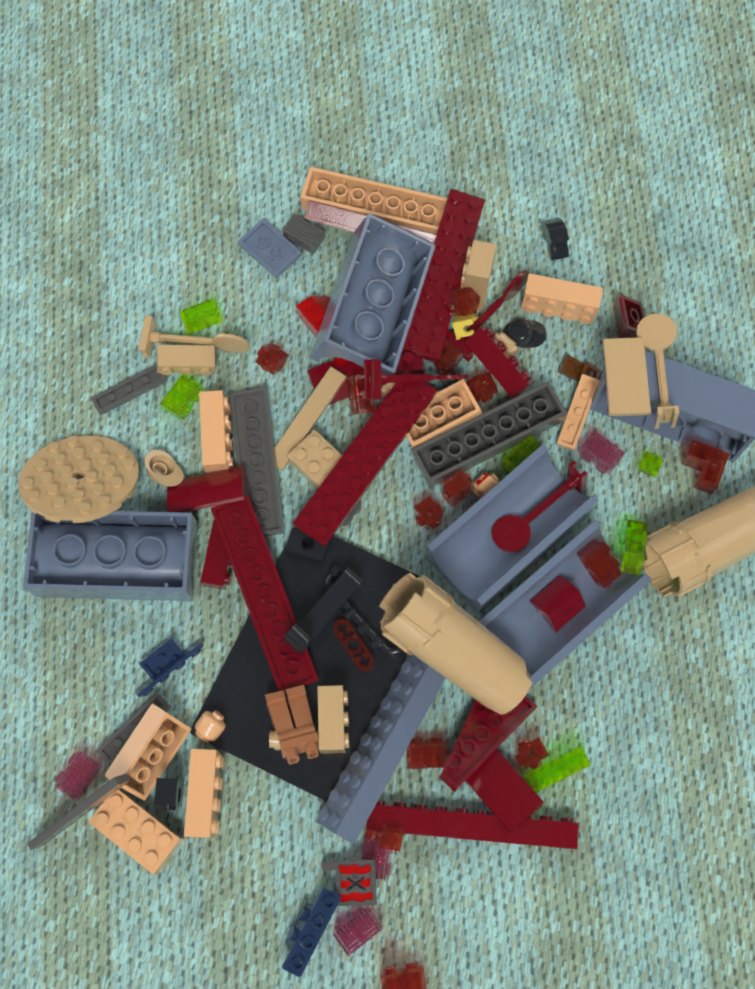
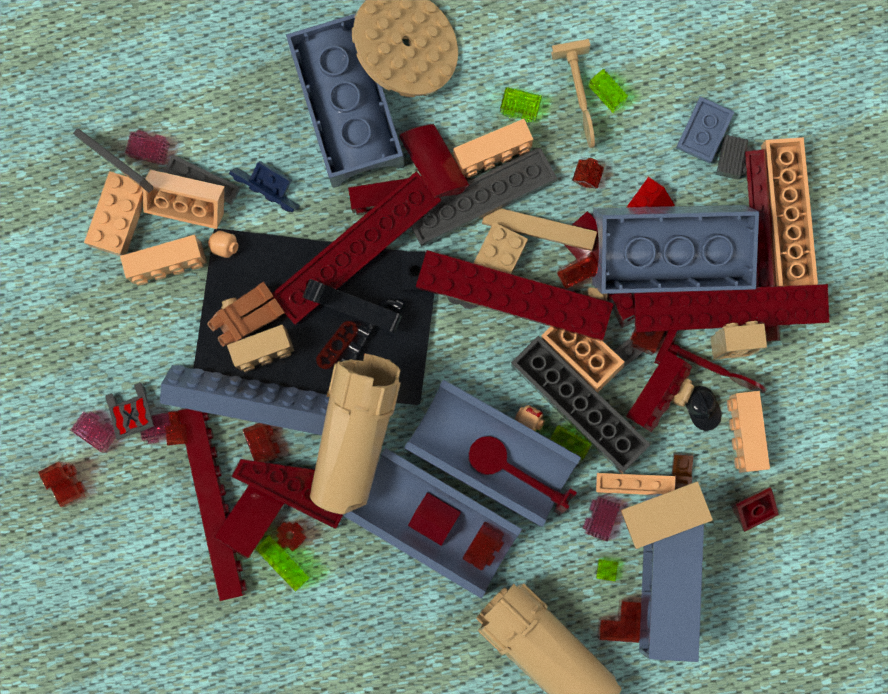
camera: 75 degrees right, 10 degrees up
(128, 390) = (512, 53): dark grey plate -> none
(162, 468) = (443, 114): tan piece -> none
(168, 793) = (154, 230): black brick -> none
(185, 359) = (557, 93): tan brick -> none
(308, 930) = (80, 389): dark blue bracket -> none
(374, 378) = (585, 276): dark red piece -> none
(428, 514) = (486, 366): clear red brick -> none
(456, 488) = (516, 391): clear red brick -> none
(460, 325) = (690, 343): light yellow hinge -> none
(464, 301) = (704, 336): clear red brick -> none
(482, 387) = (627, 383): clear red brick -> none
(556, 235) = (817, 407): black brick -> none
(633, 547) = (512, 574): clear neon green brick -> none
(659, 334) = (724, 533): tan piece -> none

